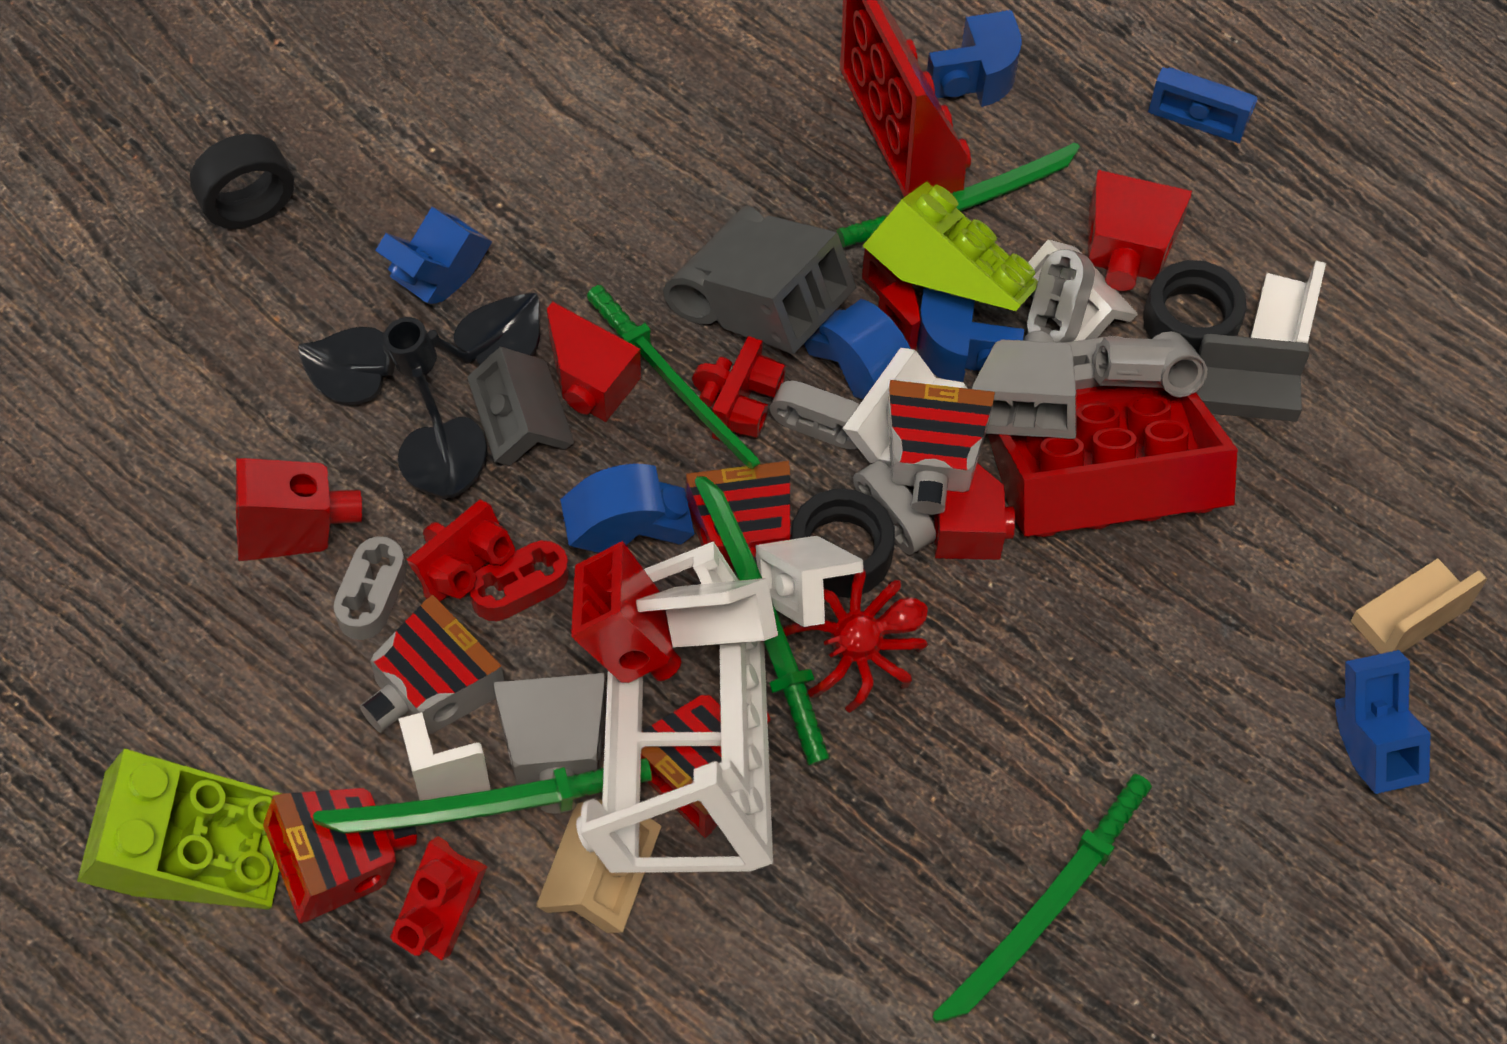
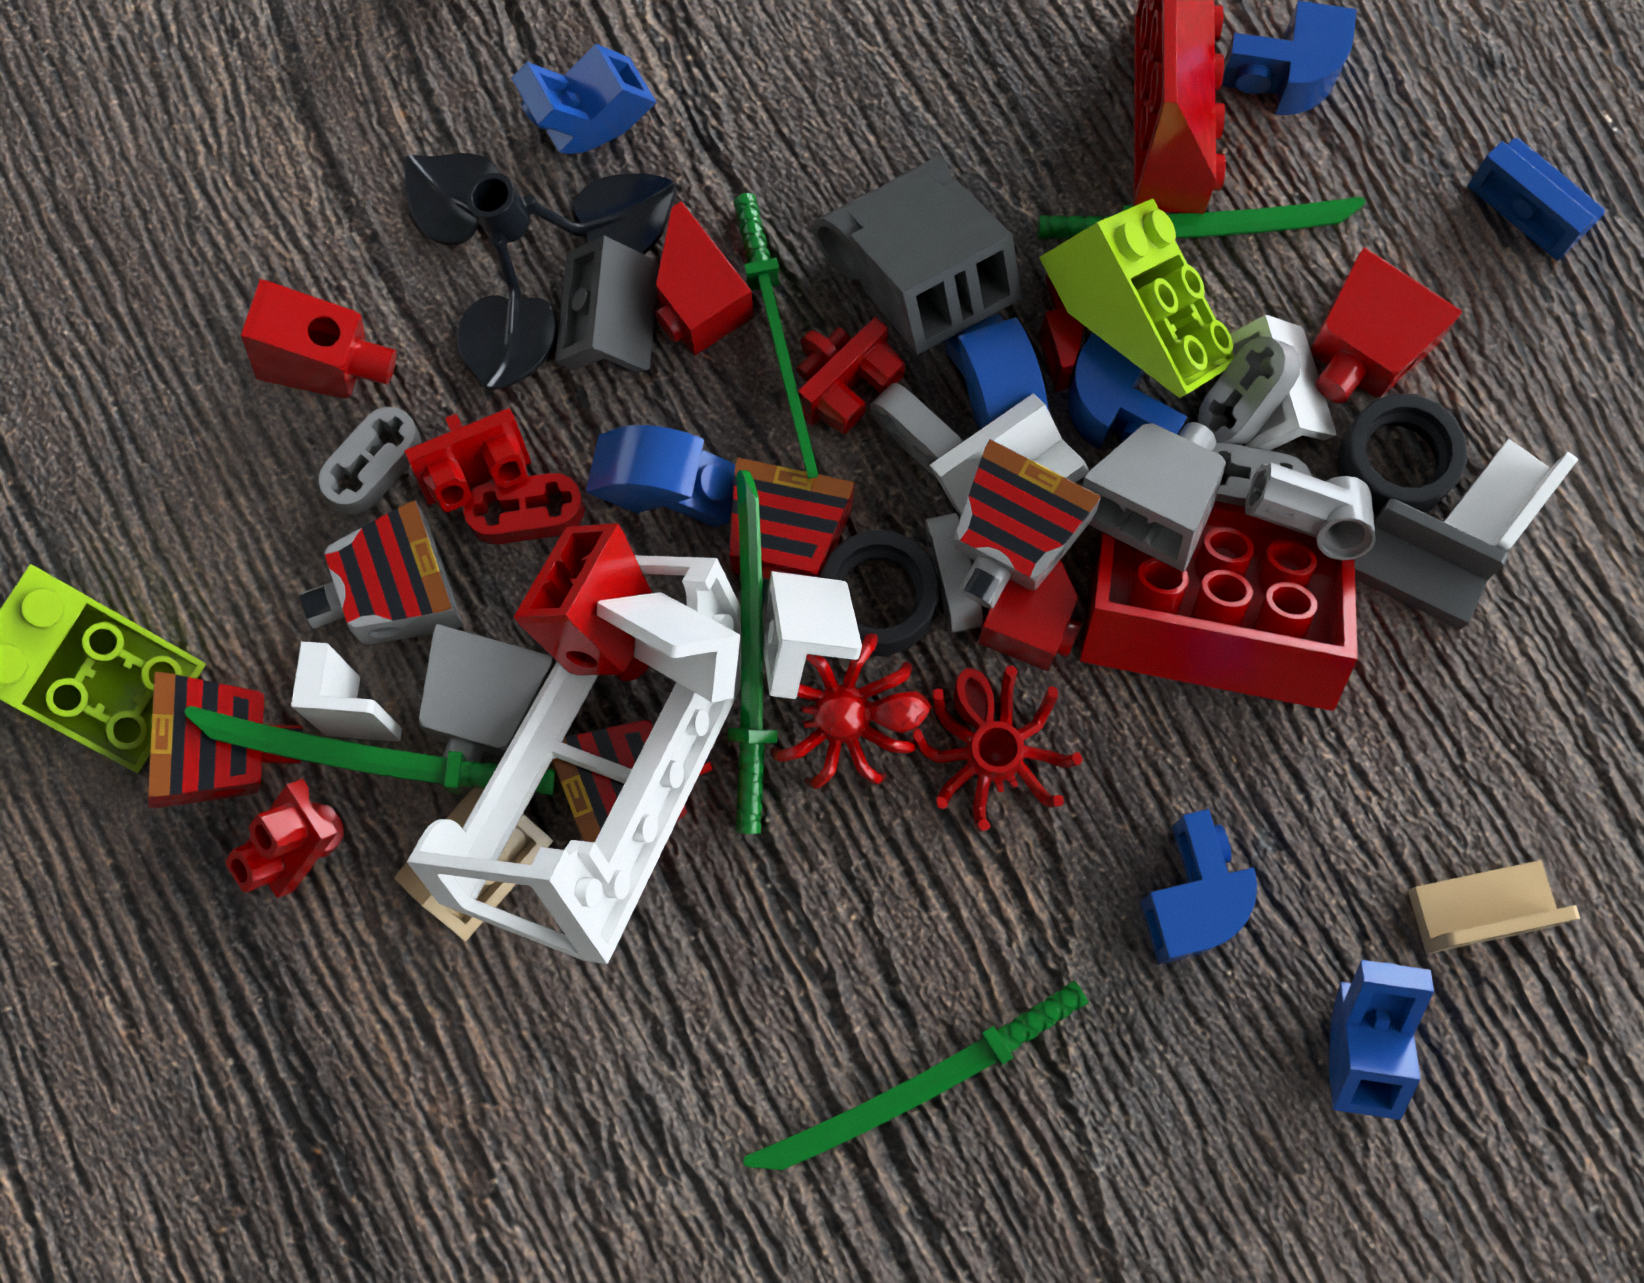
camera: 25 degrees right, 15 degrees up
(986, 622) = (996, 746): none -> red animal
(1206, 676) = (1211, 905): none -> blue brick

